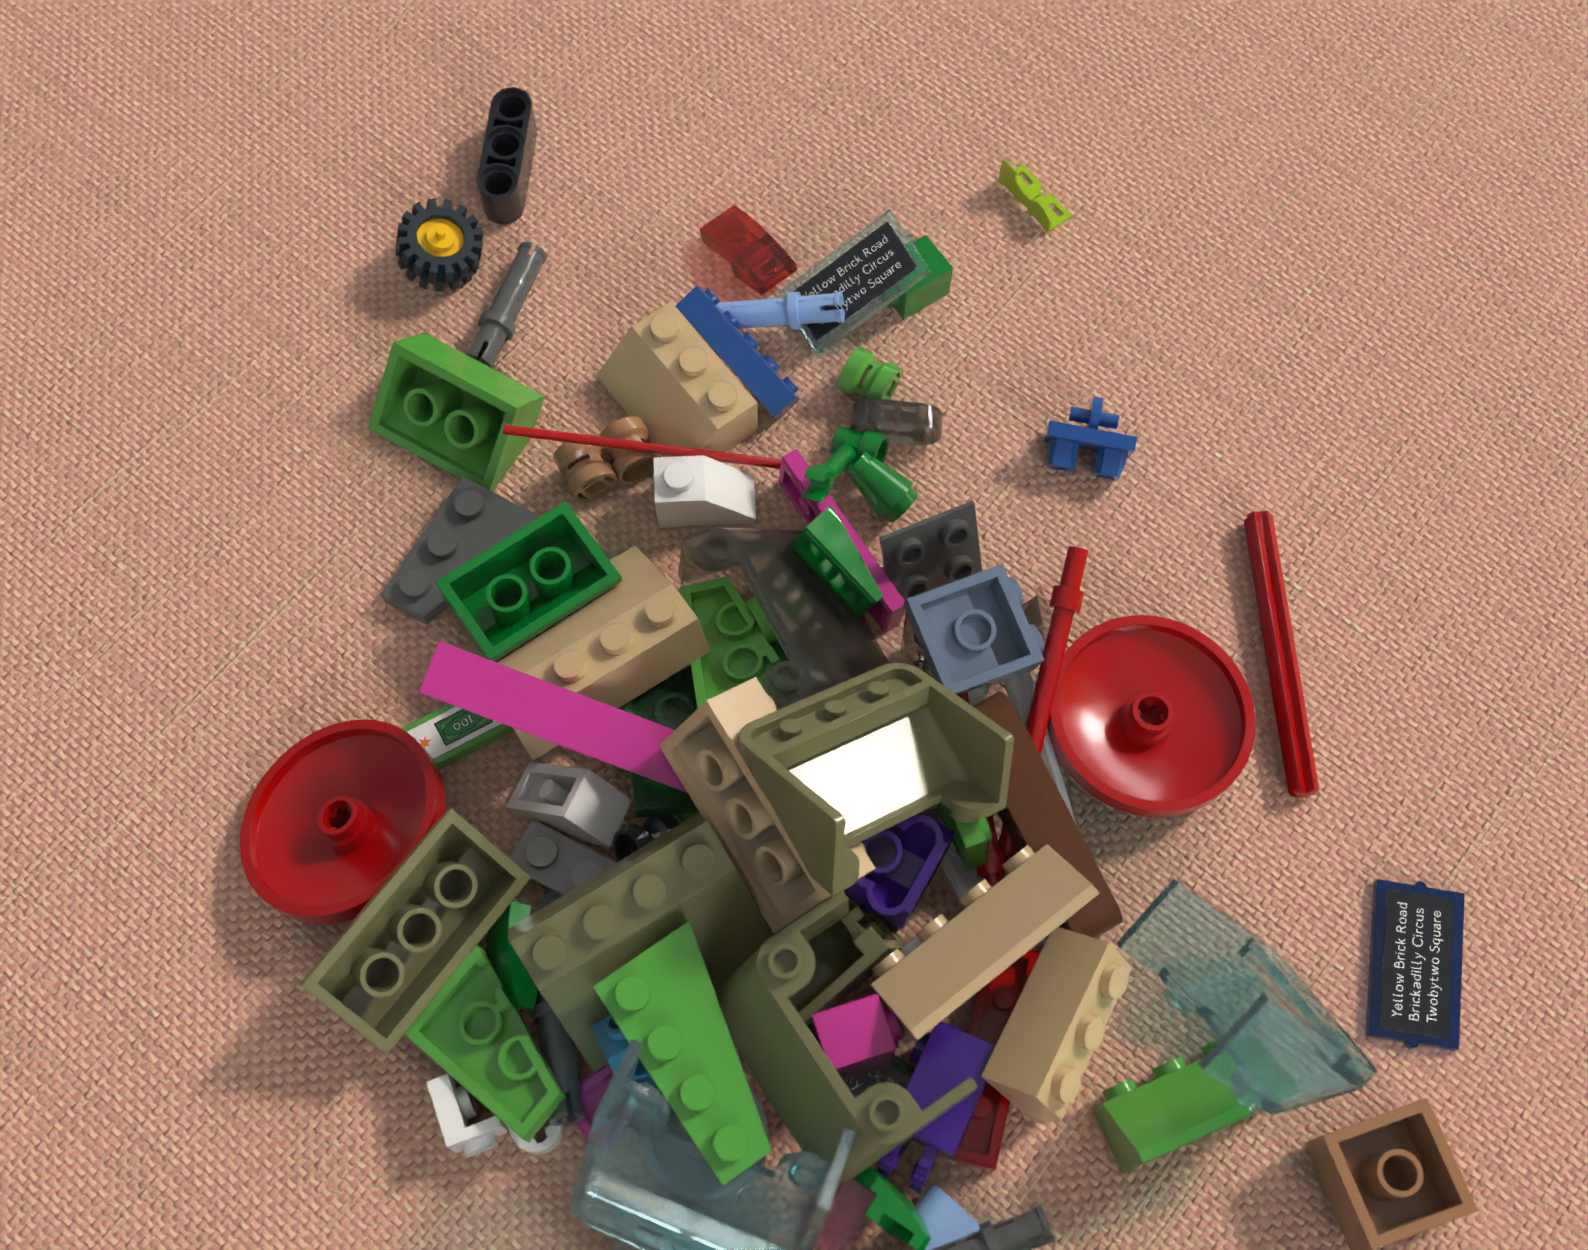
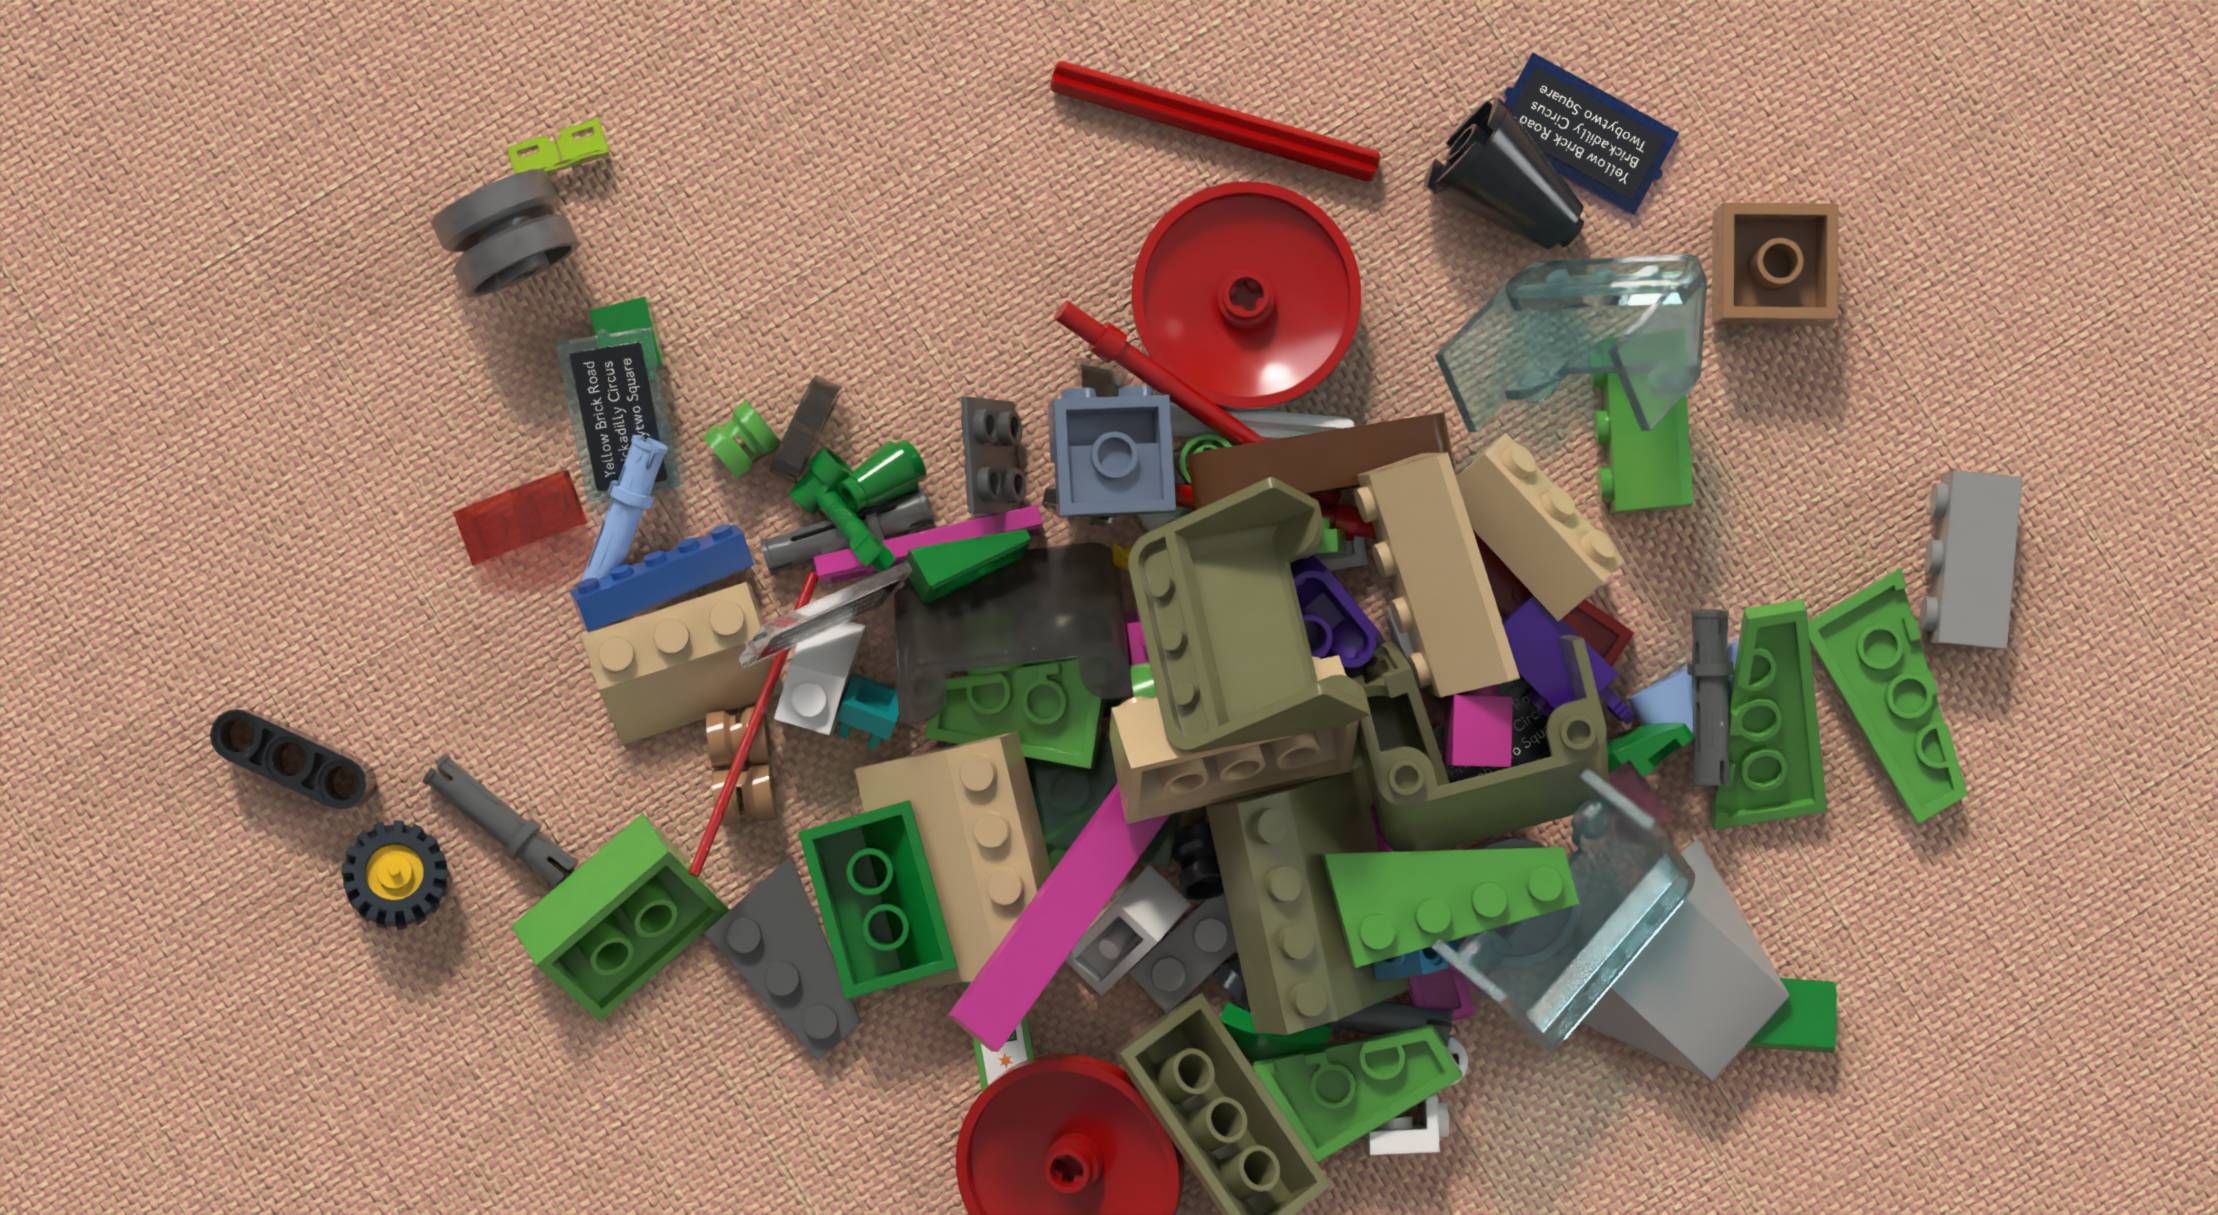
camera: 70 degrees left, 20 degrees up
(682, 523) = (868, 708): none -> teal tile
(753, 463) = (824, 614): none -> piece
(843, 492) = (823, 537): none -> dark grey pin
(960, 160) = (505, 232): none -> flat silver wheel
(1110, 446) = (919, 205): blue hips -> none
(1349, 901) = (1506, 179): none -> black cone

